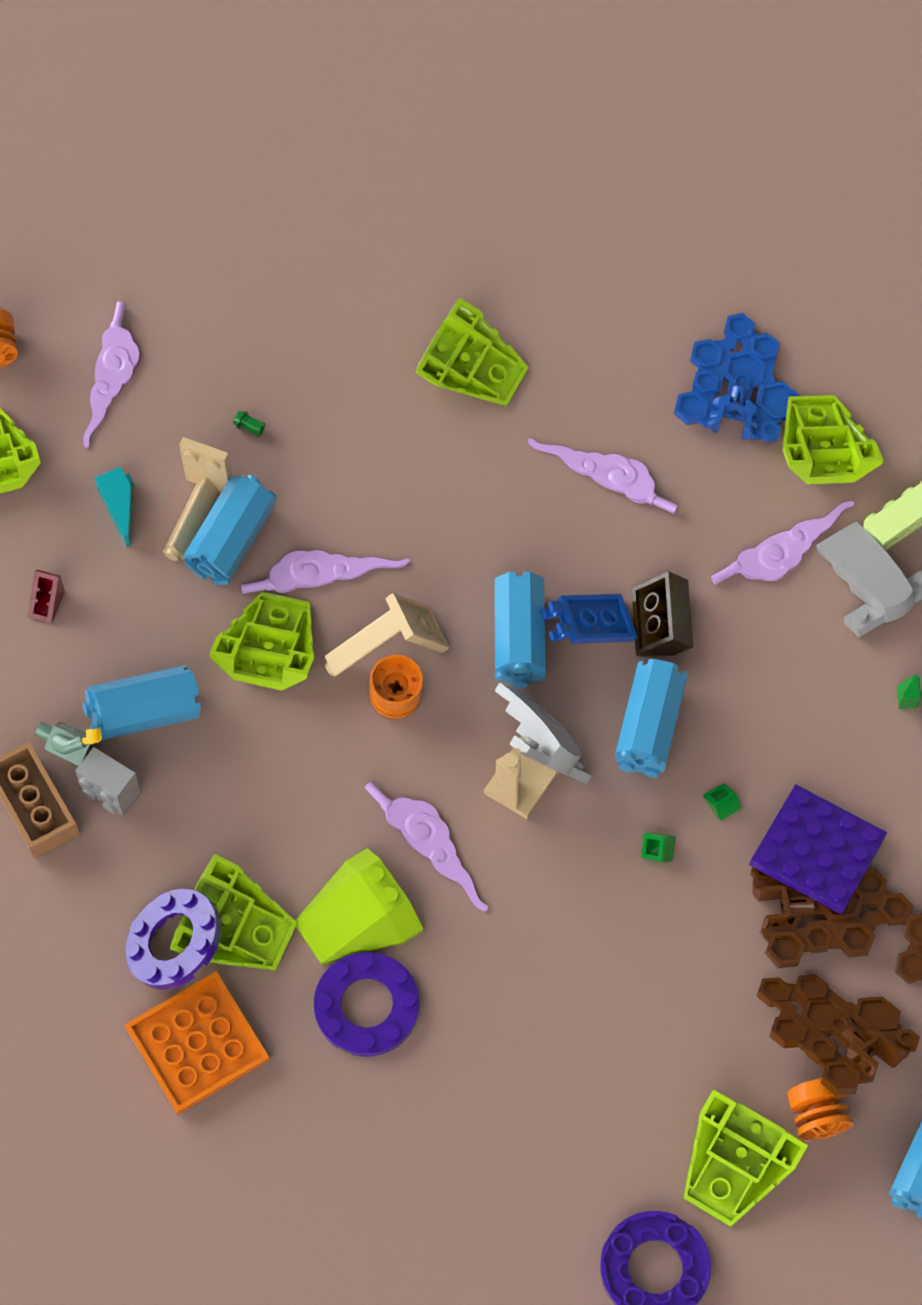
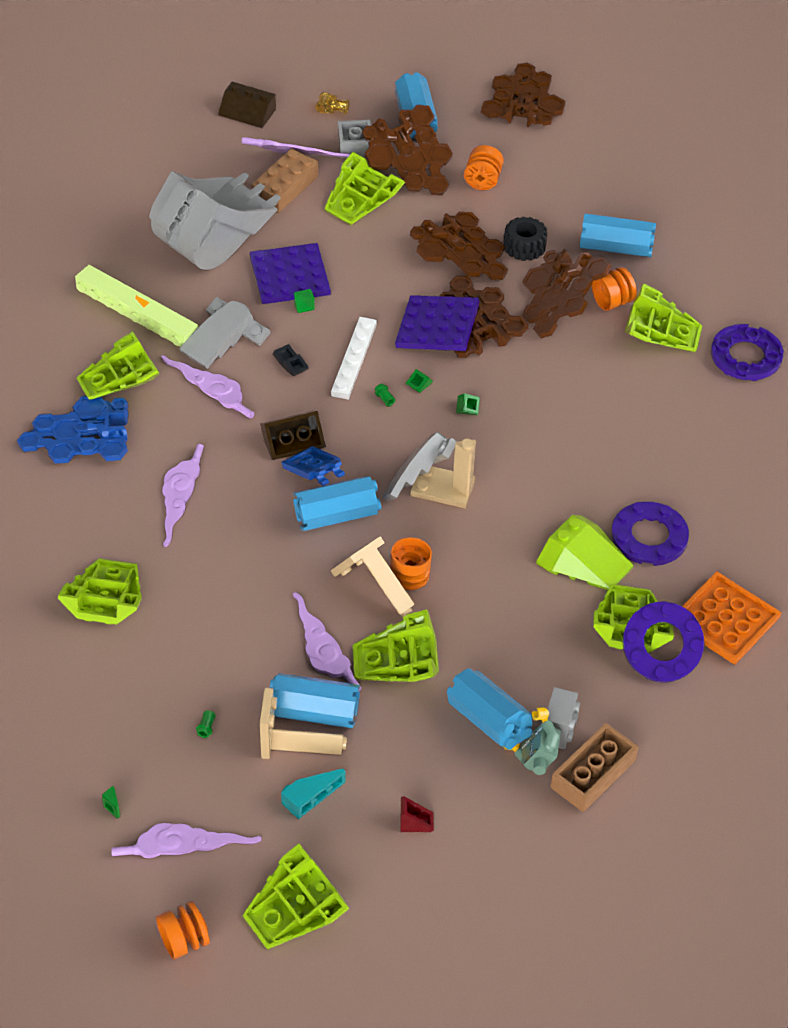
camera: 110 degrees left, 15 degrees down
(178, 313) = (110, 802): none -> green slope
(427, 835) = (512, 530): lavender piece -> none
(650, 718) = (379, 418): dark azure brick -> none
(705, 747) = (382, 391): none -> green pin
(789, 731) = (353, 358): none -> white plate
(801, 651) = (290, 361): none -> black slope

